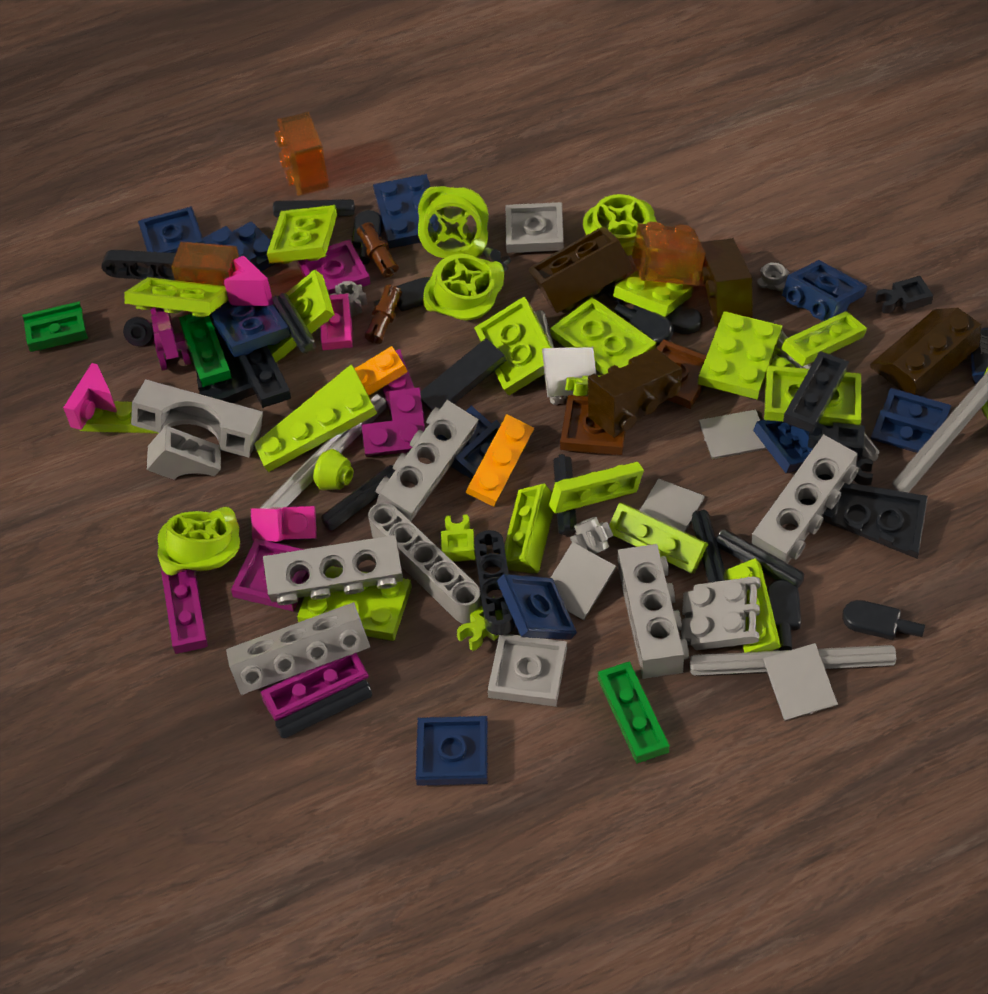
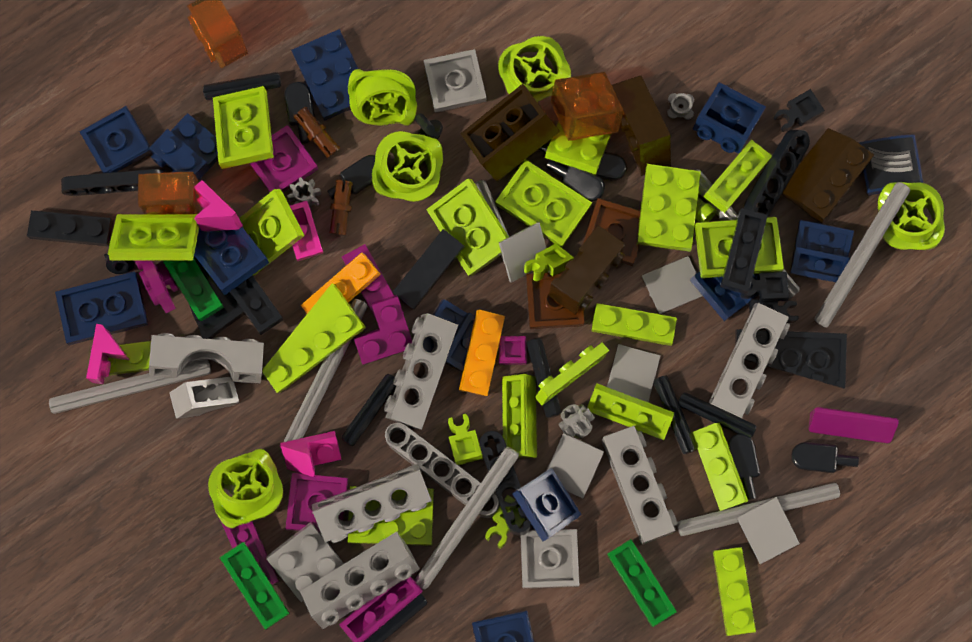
camera: 15 degrees left, 25 degrees up
(55, 326) = (39, 268): green plate -> none
(94, 440) = (125, 387): none -> light grey axle
(96, 300) = (69, 228): none -> black plate
(122, 364) = (108, 302): none -> dark blue plate
(177, 634) = (254, 585): none -> green plate
(239, 619) = (304, 559): none -> light grey plate
(295, 323) = (269, 249): black axle -> none
(332, 471) = (340, 390): lime cone -> none
(437, 602) = (466, 518): none -> light grey axle
(536, 466) = (512, 350): none -> magenta tile
(680, 461) = (634, 324): none -> lime plate
(718, 614) = (696, 481): light grey plate -> none
(746, 743) = (734, 591): none -> lime plate
(867, 340) = (774, 171): none -> black beam
(923, 589) = (852, 425): none -> magenta slope

